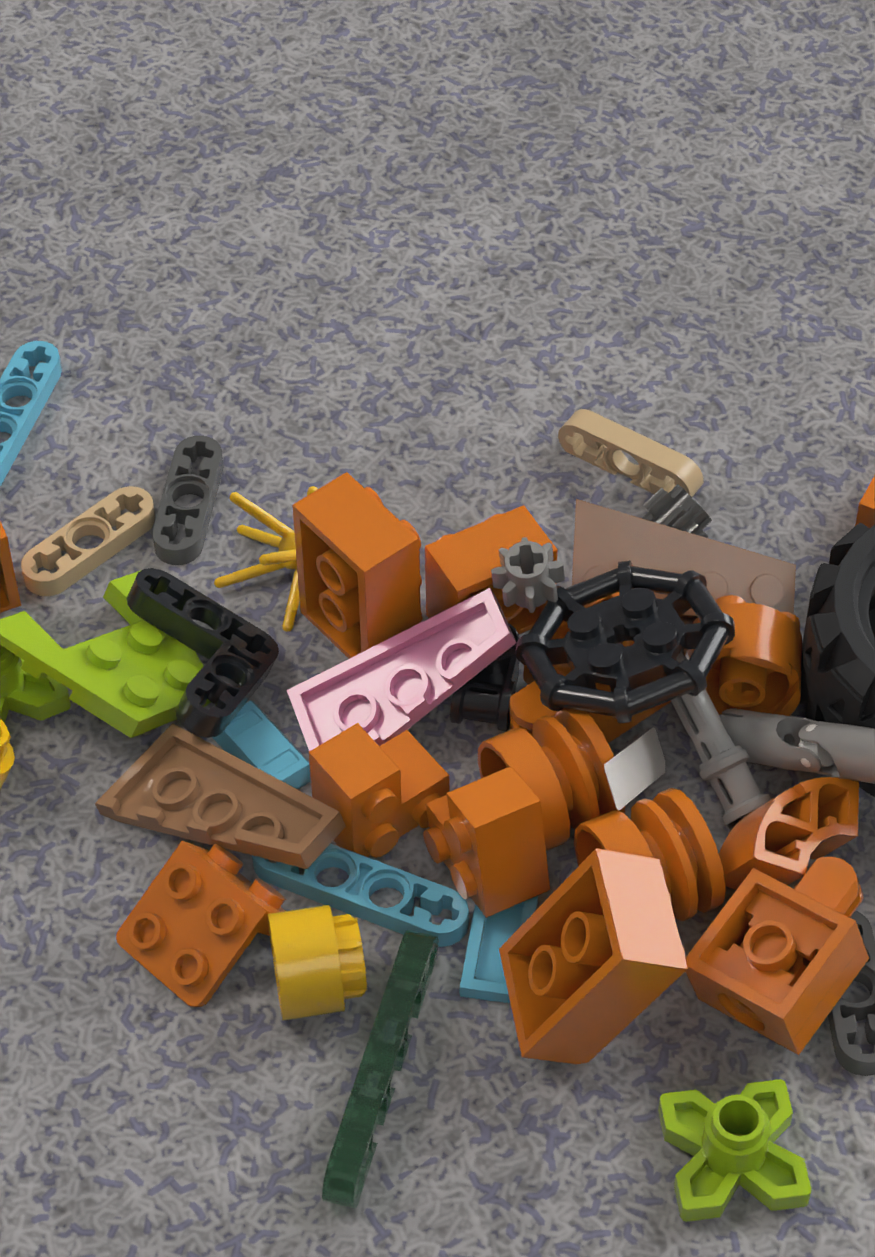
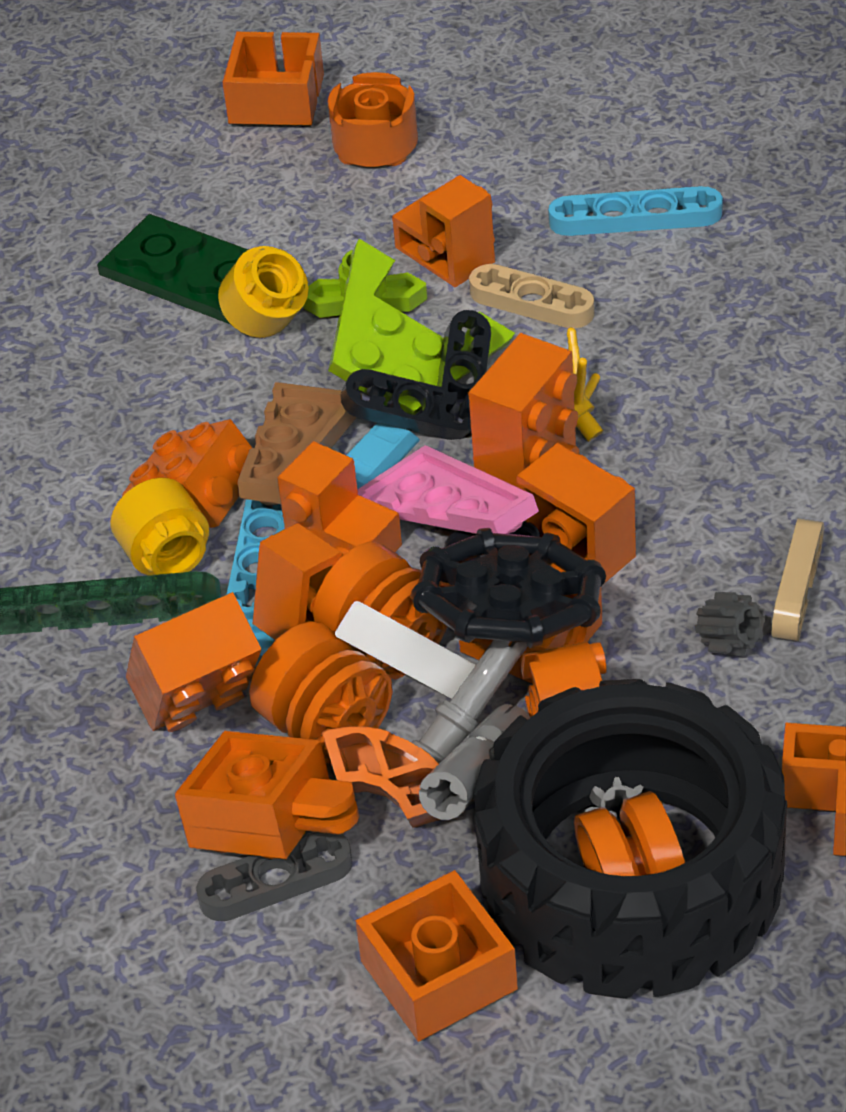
camera: 75 degrees right, 5 degrees down
(182, 482) = (615, 322): dark grey beam -> none
(528, 574) = (545, 504): light grey gear -> none
(611, 536) = (660, 617): medium nougat wing -> none
(733, 1148) = (89, 824): lime plant -> none

